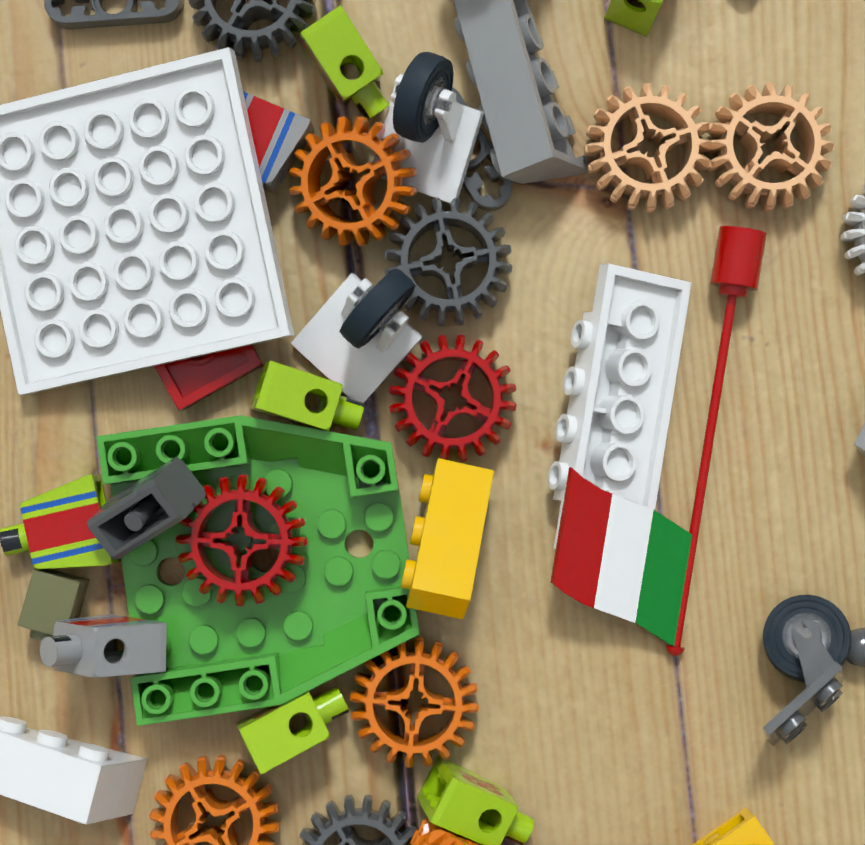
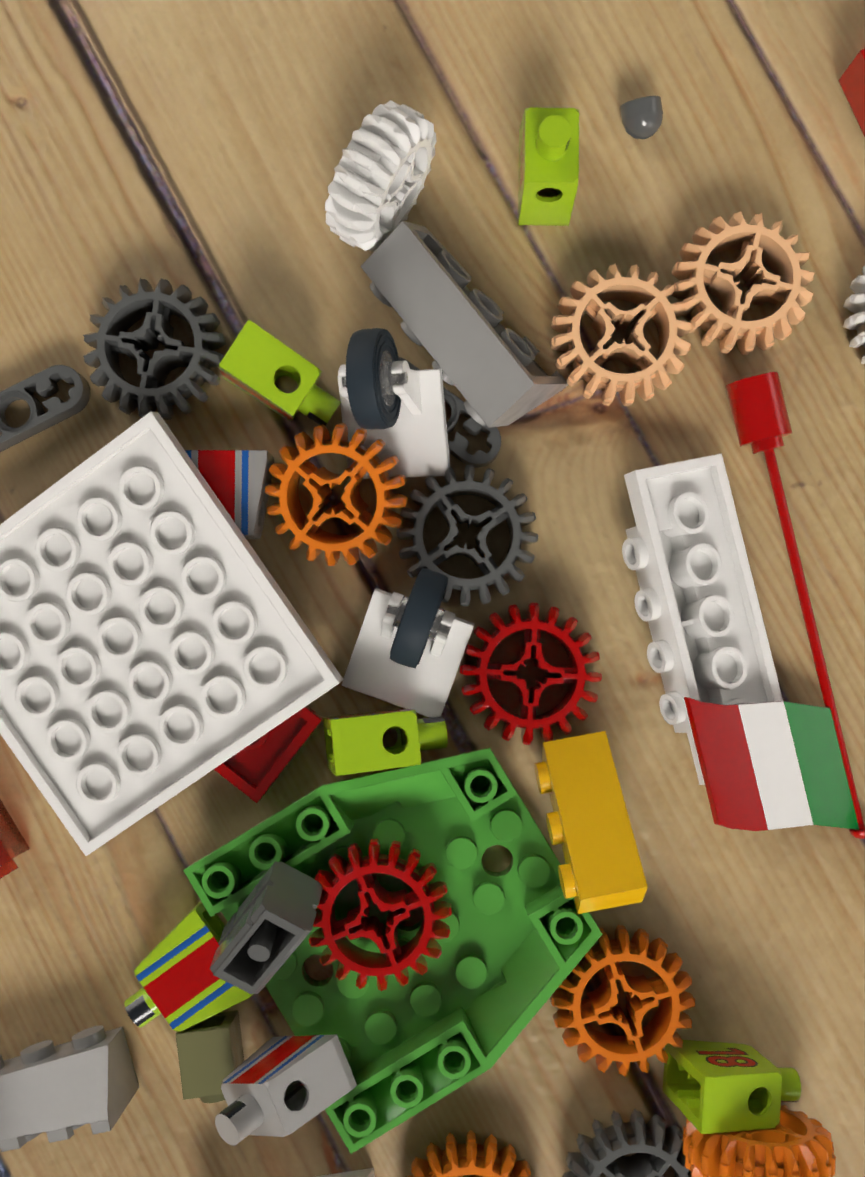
camera: 20 degrees left, 0 degrees up
(269, 734) = (501, 1105): lime torso -> none

